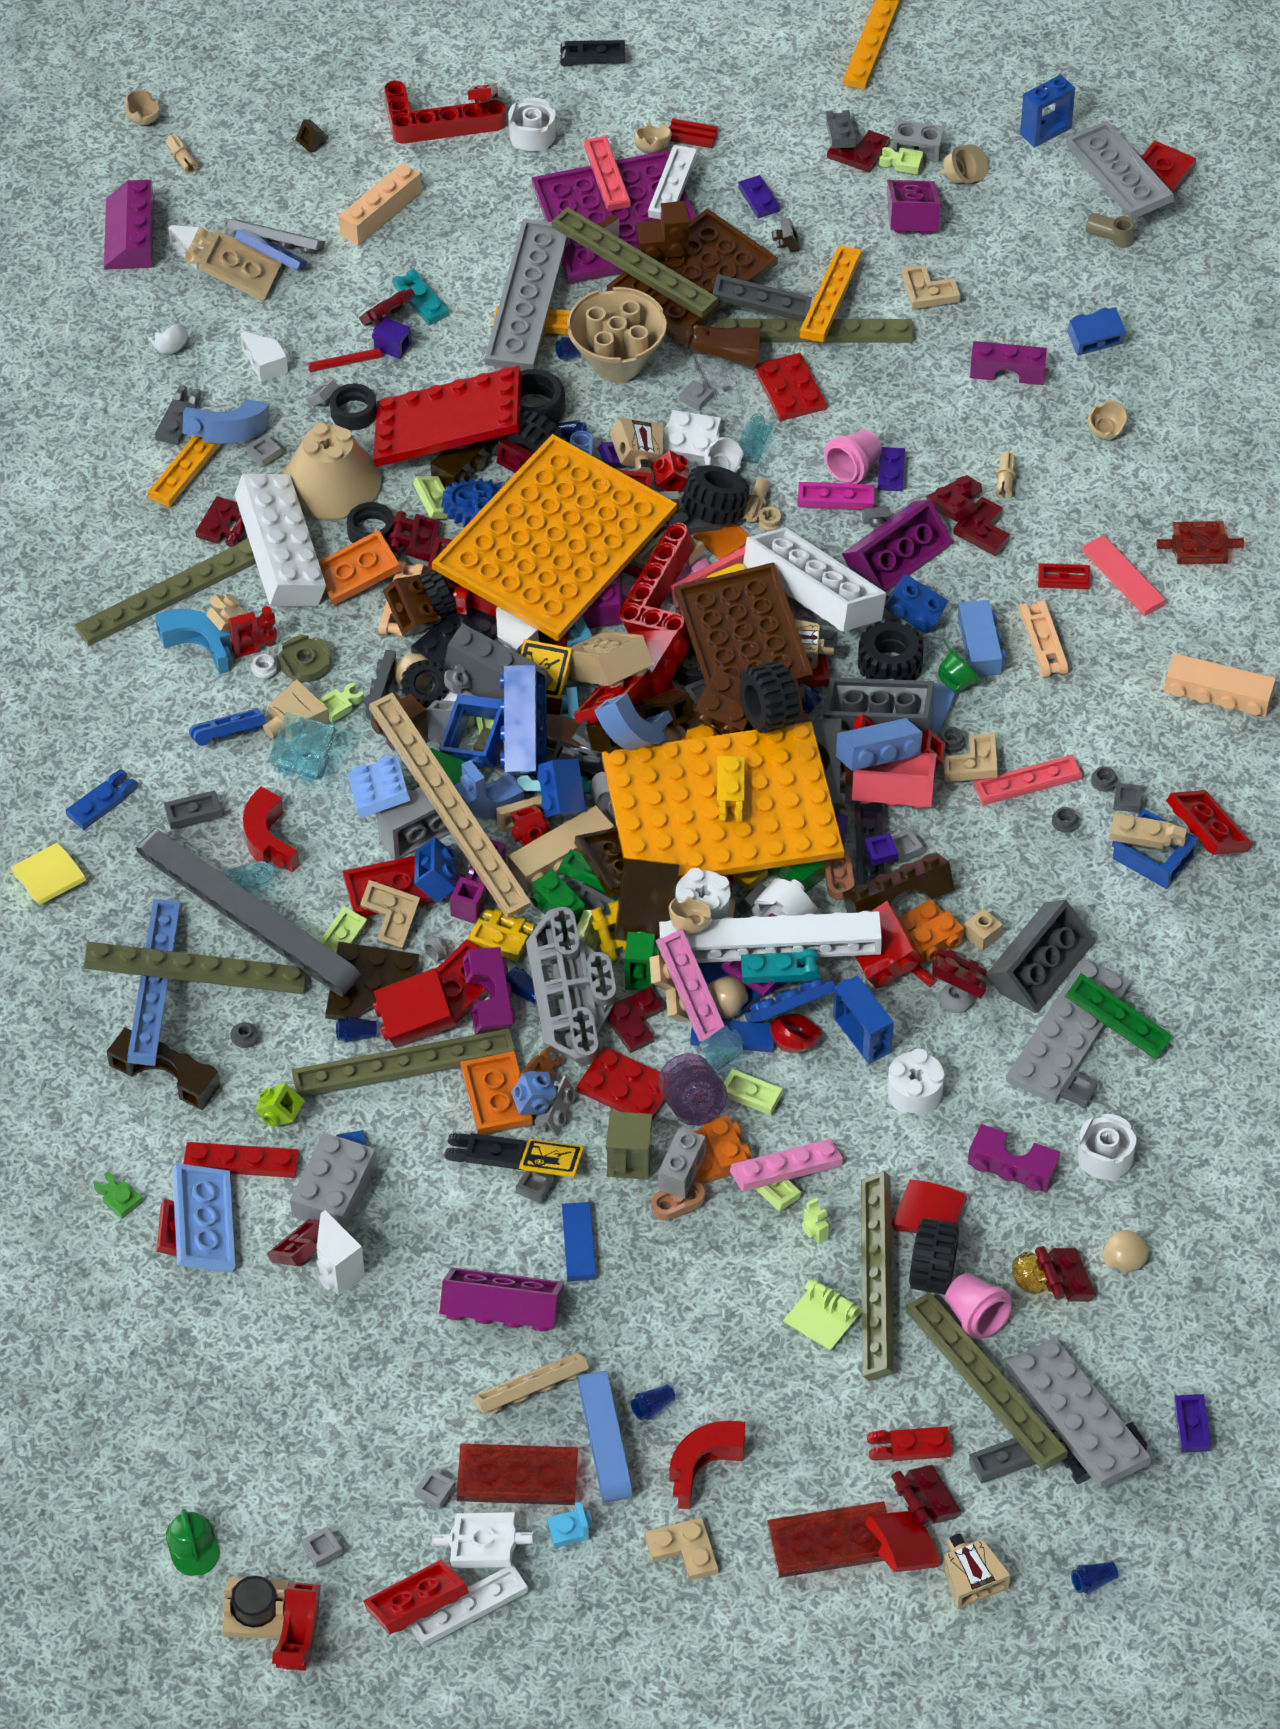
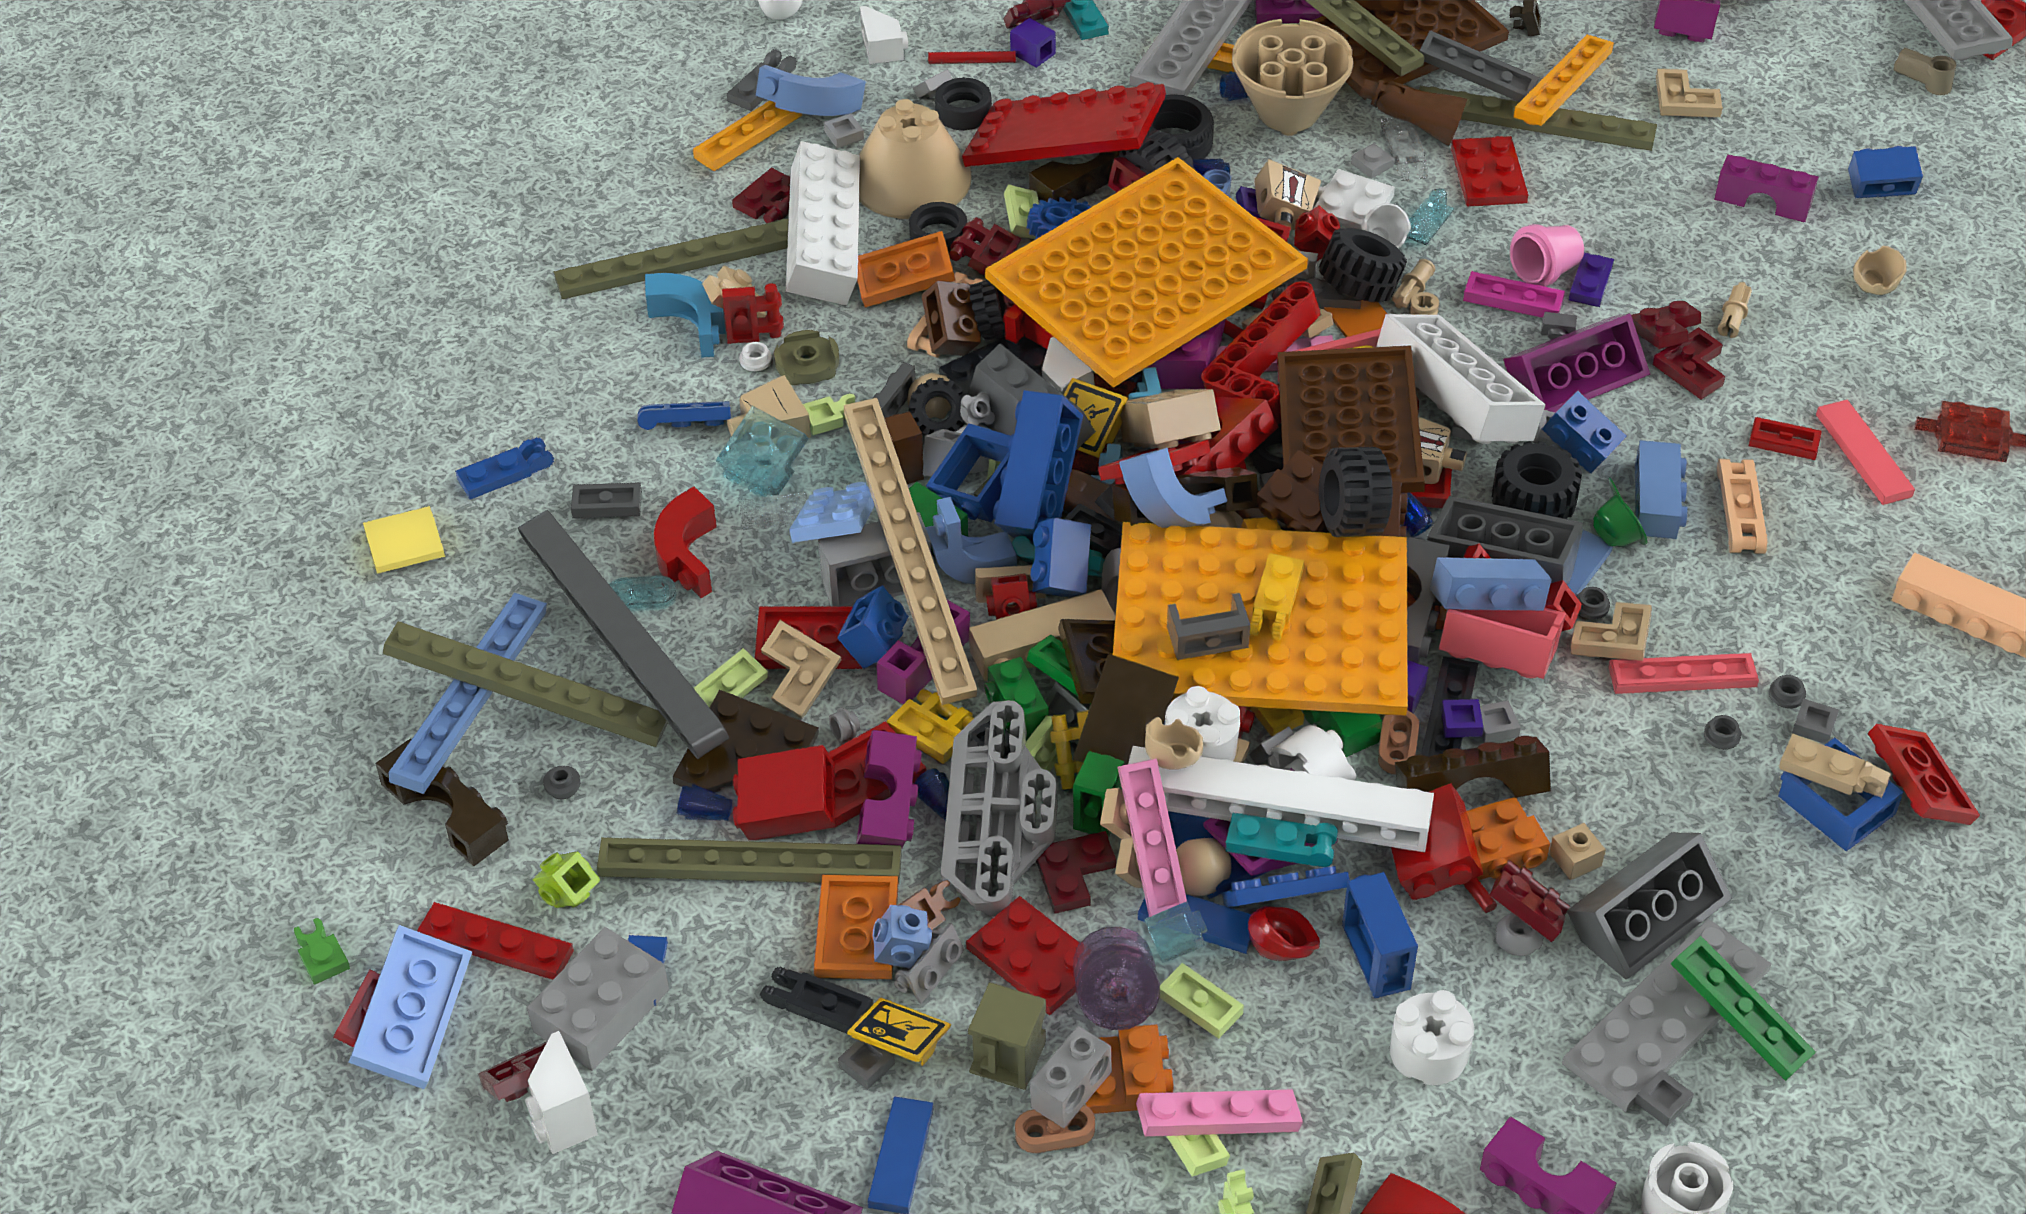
camera: 15 degrees right, 5 degrees down
(691, 825) = (1209, 632): none -> dark grey panel

